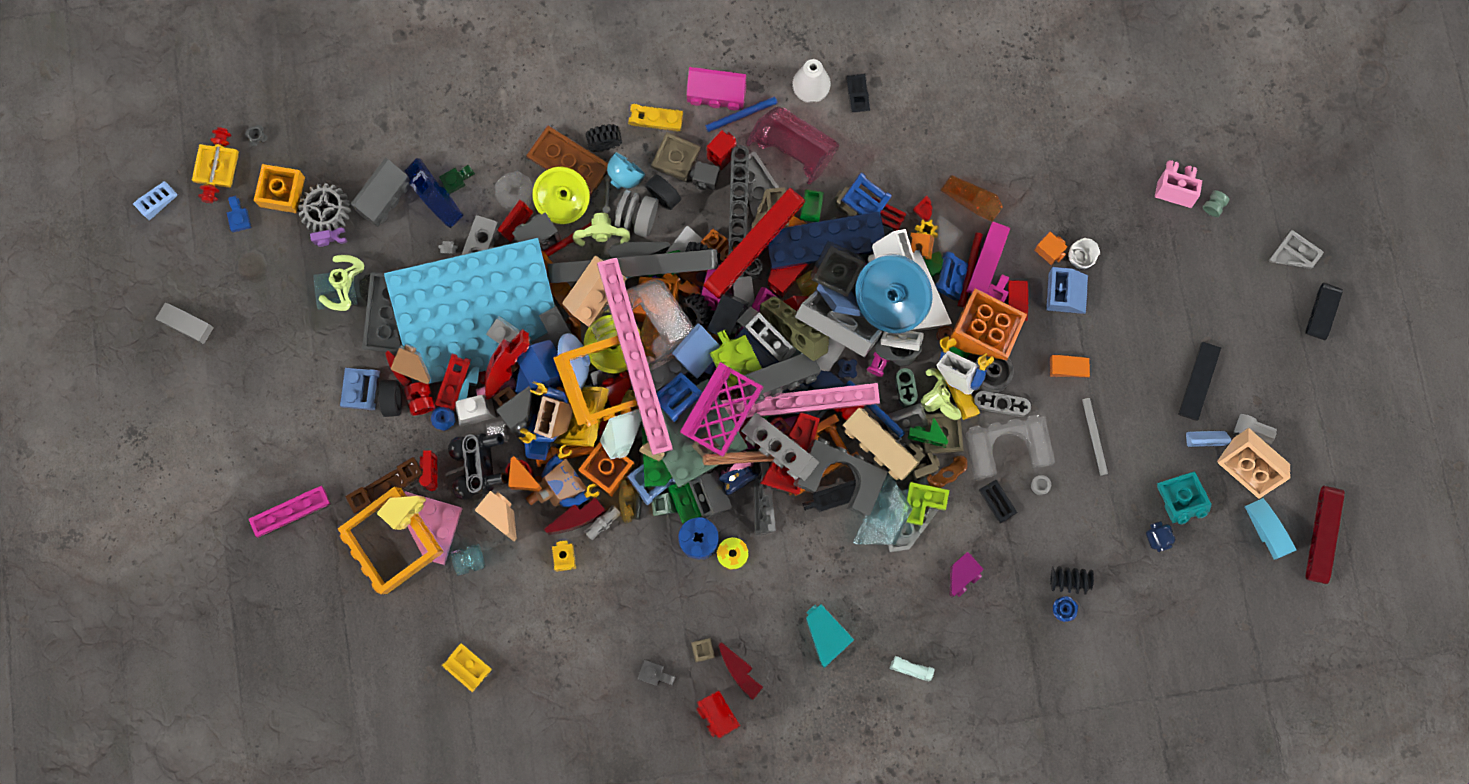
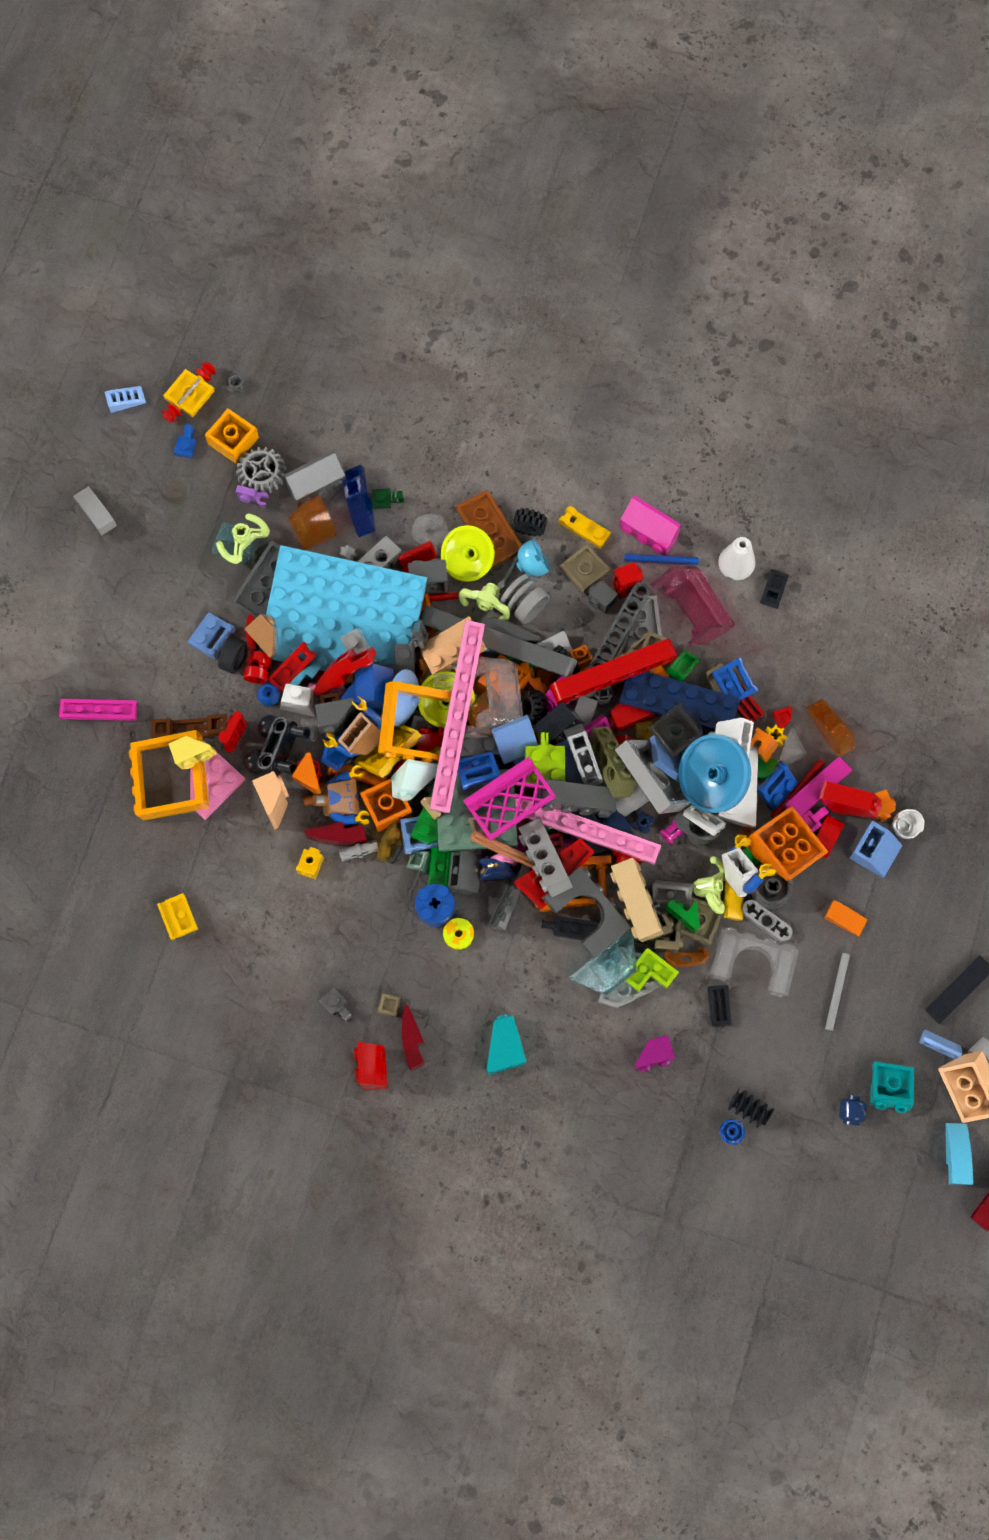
camera: 25 degrees right, 5 degrees down
(399, 236) = (312, 523): none -> clear orange slope
(468, 559) = (226, 824): clear light blue wheel -> none
(558, 296) = (419, 636): none -> flat silver plate
(663, 191) = (558, 592): black tyre -> none
(883, 416) = (653, 880): blue bar -> none
(901, 388) = (691, 864): sand green beam -> none
(911, 669) = (564, 1114): light aqua plate -> none
(1024, 258) = (850, 800): none -> red slope
(1041, 485) = (765, 1010): light grey tile -> none

